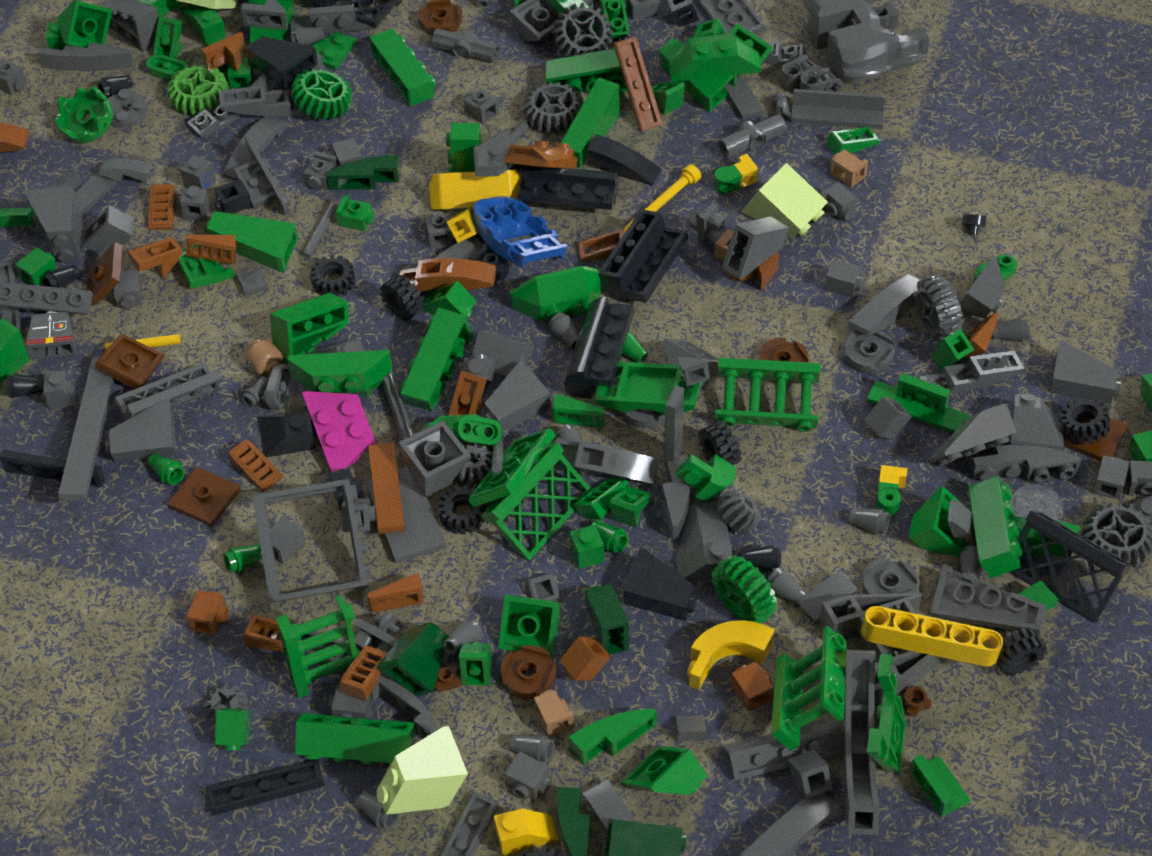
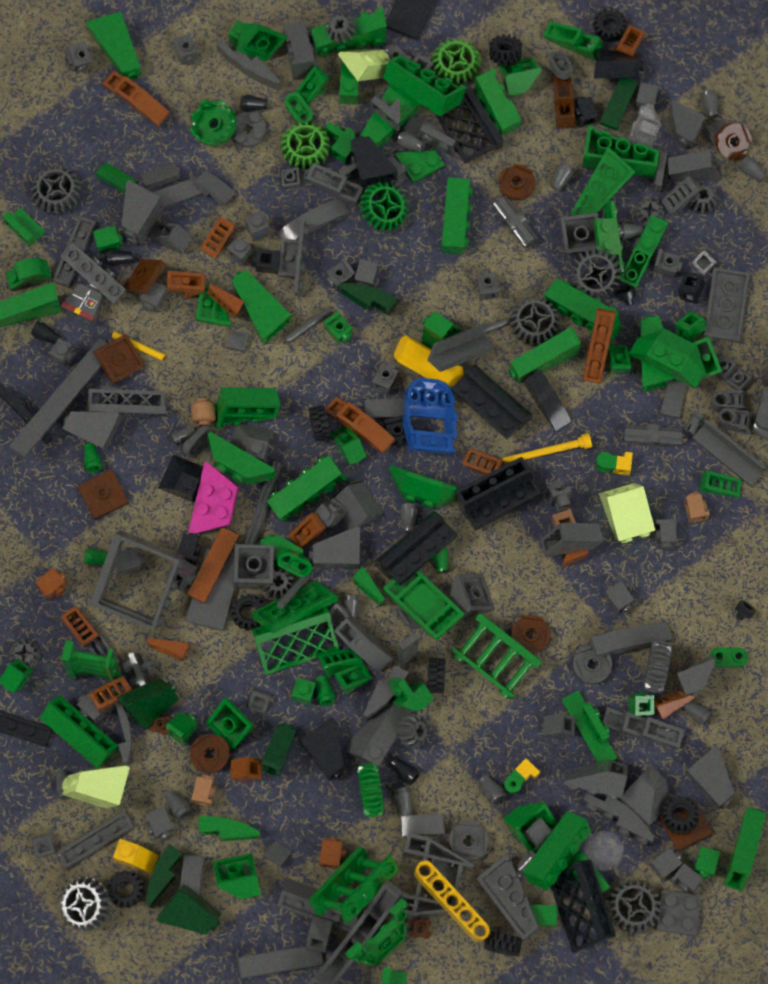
camera: 30 degrees right, 20 degrees up
(227, 50) = (342, 130): dark orange slope -> none
(245, 453) = (142, 477): dark orange slope -> none
(330, 266) = (286, 362): black tyre -> none
(462, 225) = (397, 388): yellow leg -> none
(465, 633) = (187, 704): dark grey cone -> none
(542, 155) = (487, 369): dark orange slope -> none
(693, 370) = (450, 616): dark grey slope -> none
(728, 639) = (337, 812): yellow arch -> none

